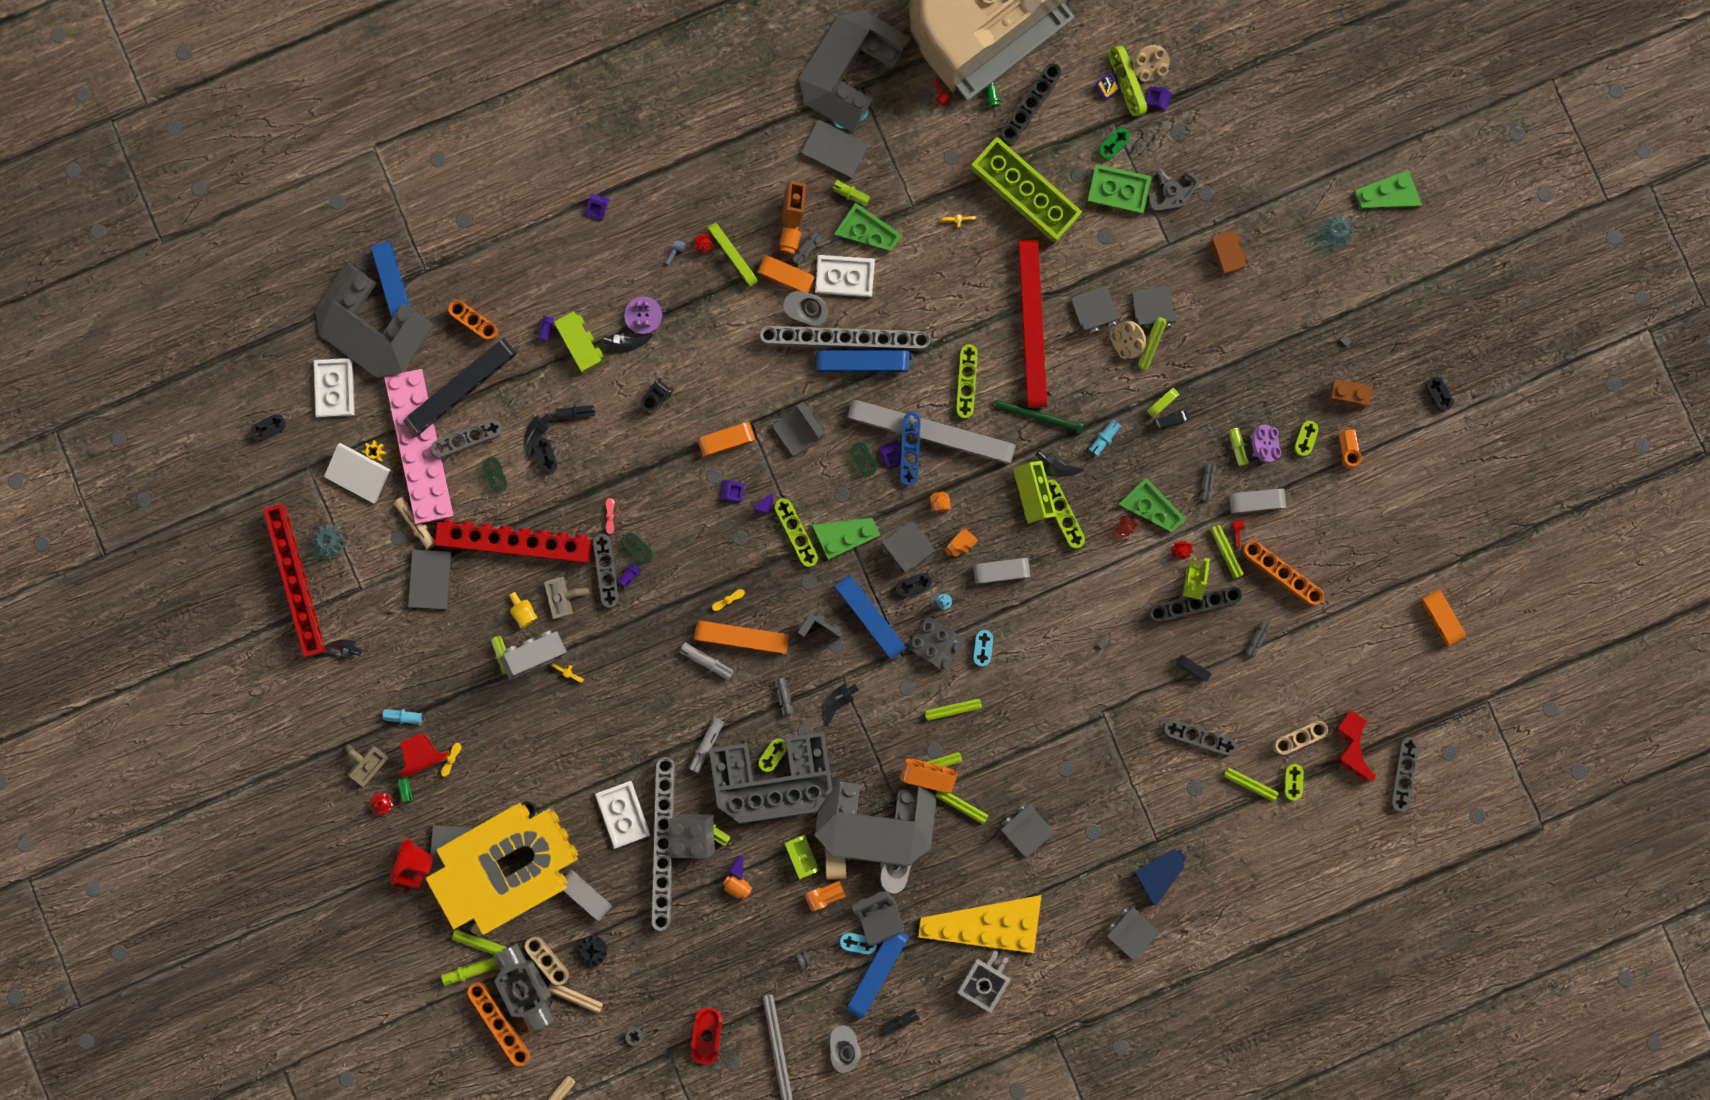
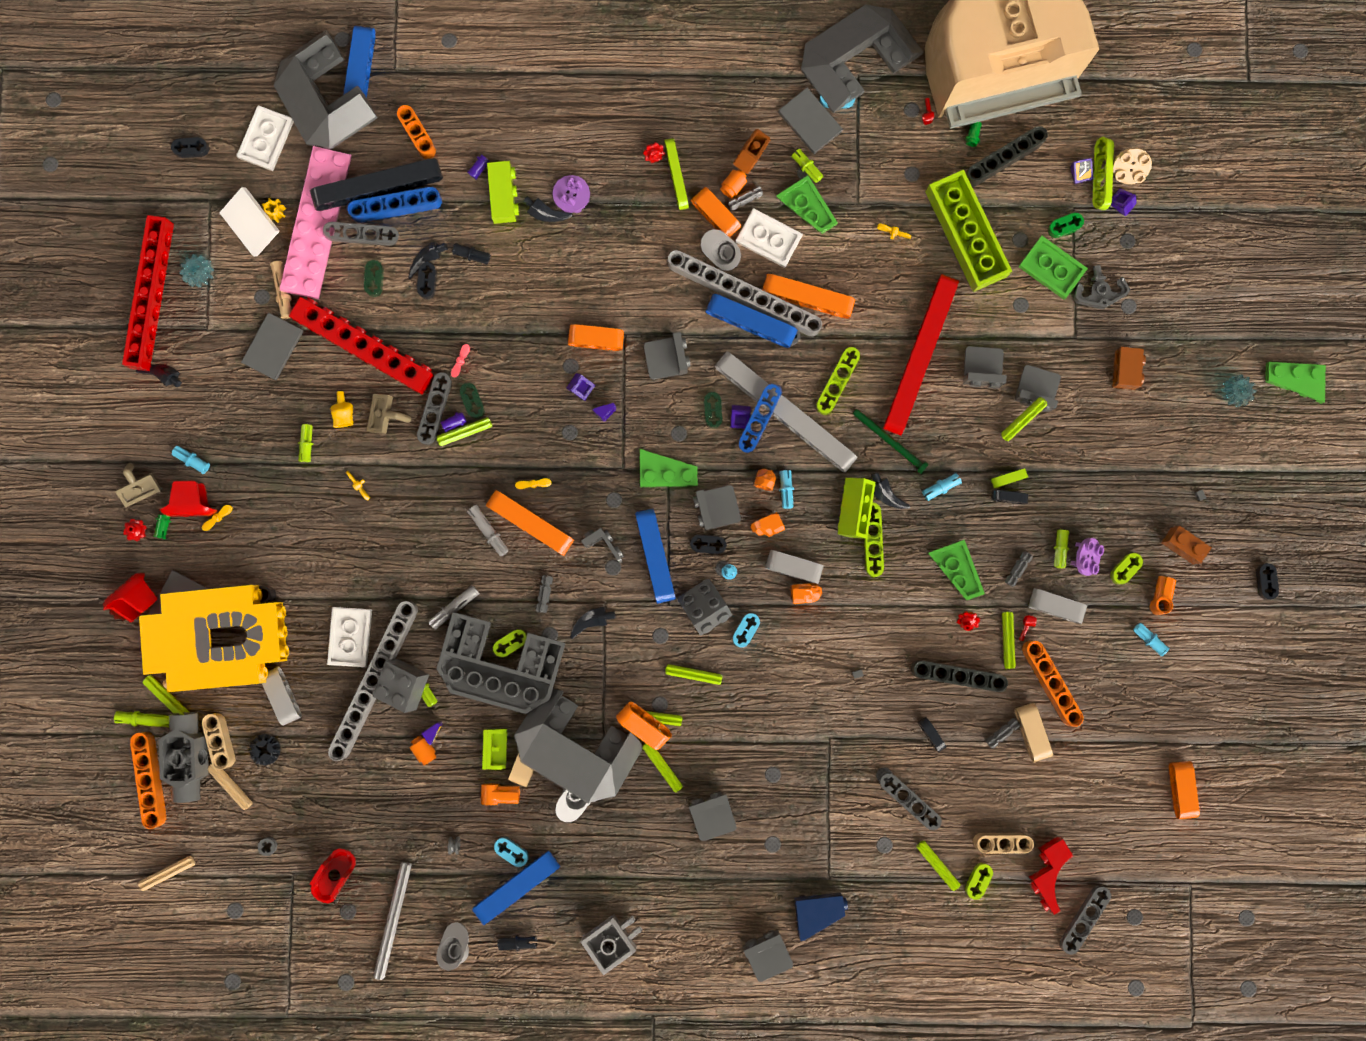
camera: 15 degrees right, 0 degrees up
(494, 396) = (386, 201): none -> blue beam
(532, 654) = (330, 454): light grey brick -> none
(597, 206) = (573, 79): dark purple slope -> none
(643, 579) = (464, 431): none -> lime axle
(656, 395) = (551, 270): black piece -> none
(677, 246) = (629, 145): sand blue hand -> none
(793, 534) = (625, 449): lime beam -> none
(879, 917) = (539, 838): dark grey bracket -> none
(905, 315) = (809, 296): none -> orange beam
(963, 502) = (786, 489): none -> medium azure axle
(997, 925) = (644, 891): yellow wing -> none
(1022, 590) = (805, 593): none -> orange rock
(1123, 332) = (1003, 415): tan plate -> none
(1126, 526) = (926, 576): clear red plant -> none
(1196, 579) = (971, 653): lime hinge -> none
(1284, 625) = (1033, 732): none -> tan beam
(1355, 493) = (1151, 639): none -> medium azure axle

